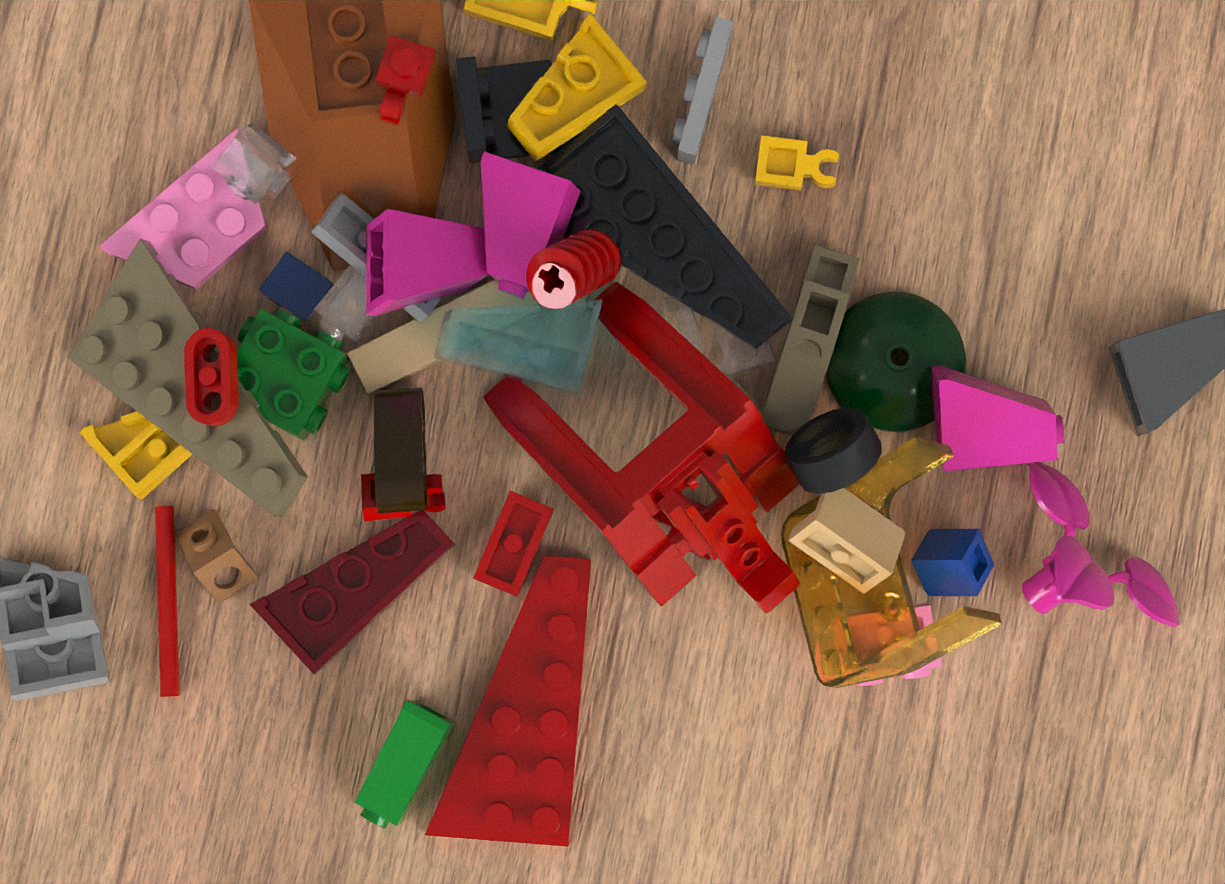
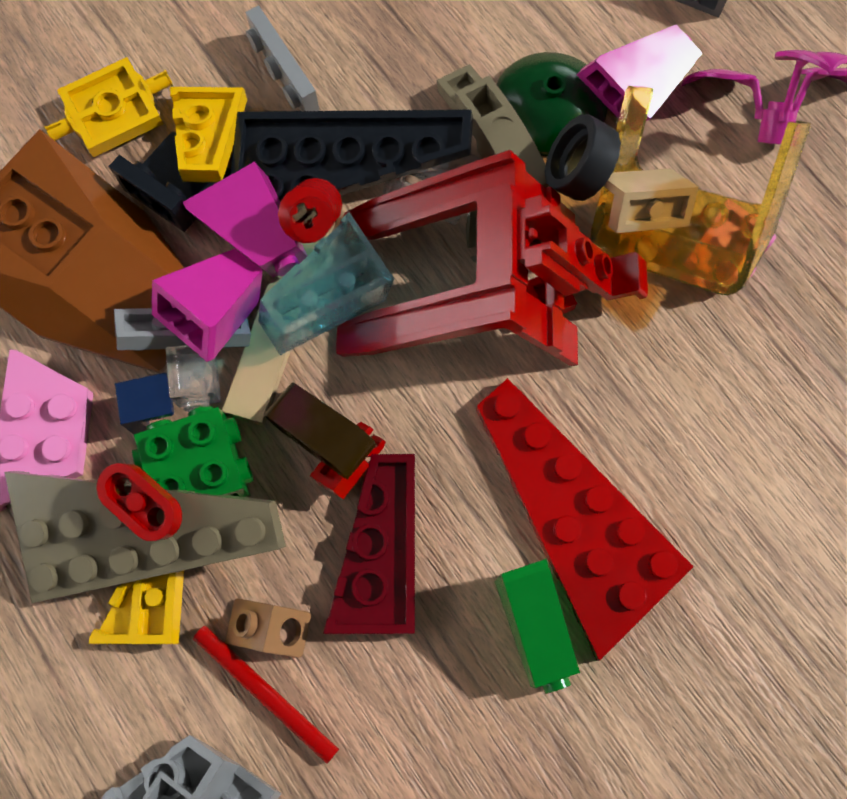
camera: 45 degrees left, 10 degrees down
(254, 164) = (38, 352): clear brick -> none
(404, 72) = (81, 201): red plate -> none
(513, 543) = (451, 418): red plate -> none
(785, 164) = (375, 57): yellow plate -> none
(953, 562) = (711, 165): blue panel -> none

